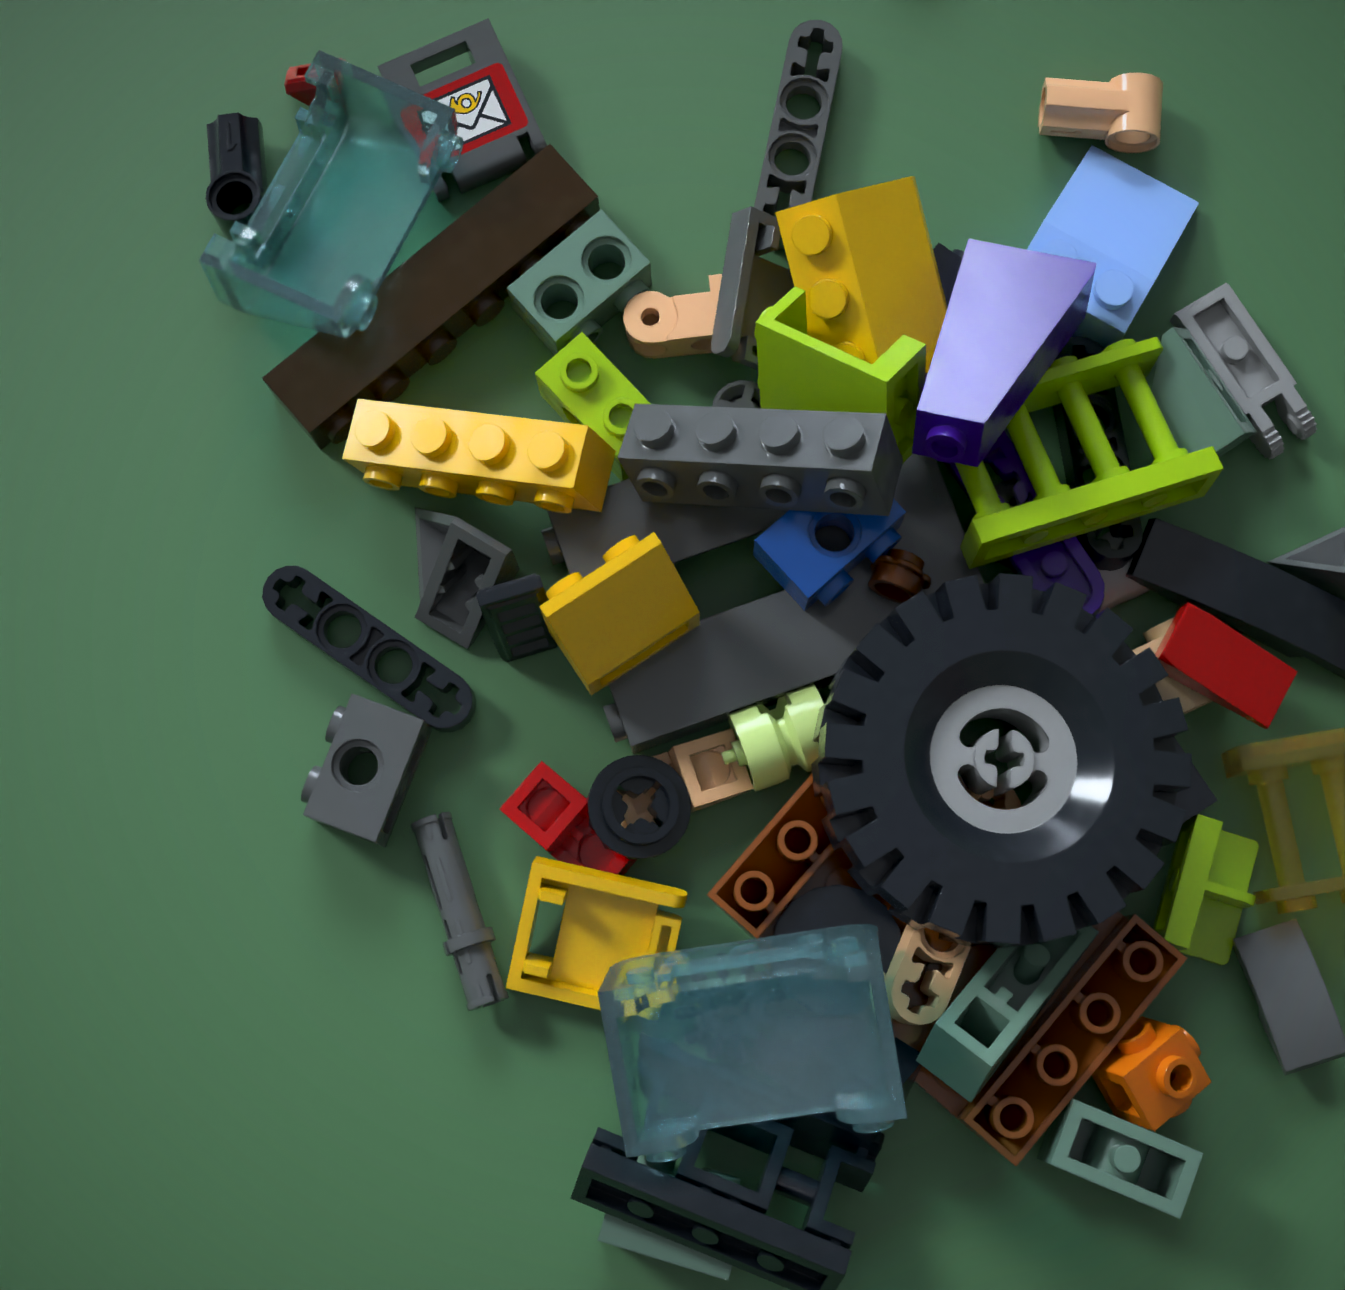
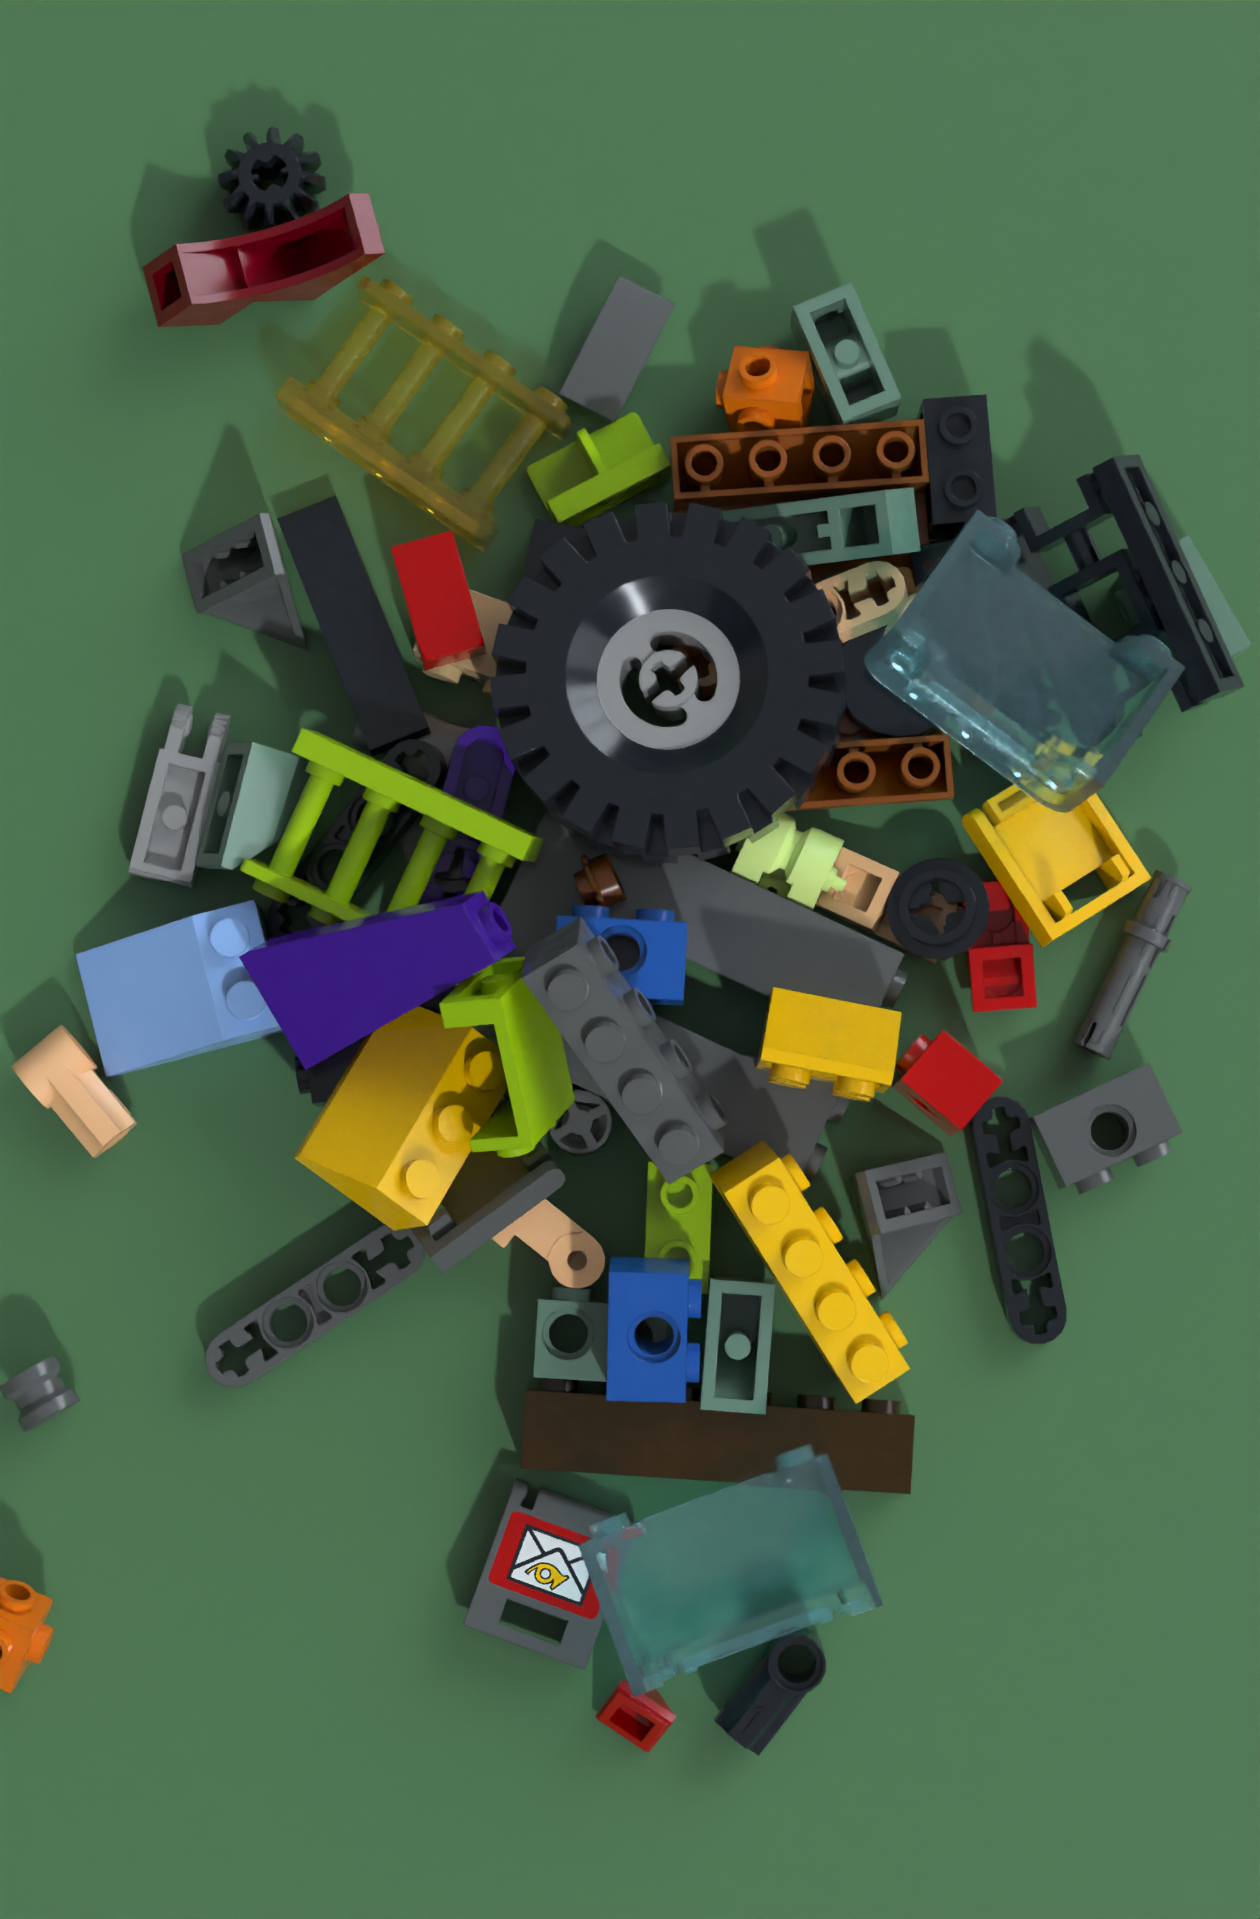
camera: 140 degrees left, 5 degrees up
(482, 361) = (737, 1343): none -> sand green slope
(511, 681) = (944, 1081): none -> red brick
(515, 617) = (892, 1127): black slope -> none
(535, 269) = (643, 1368): none -> blue brick
(956, 1160) = (957, 462): none -> black brick

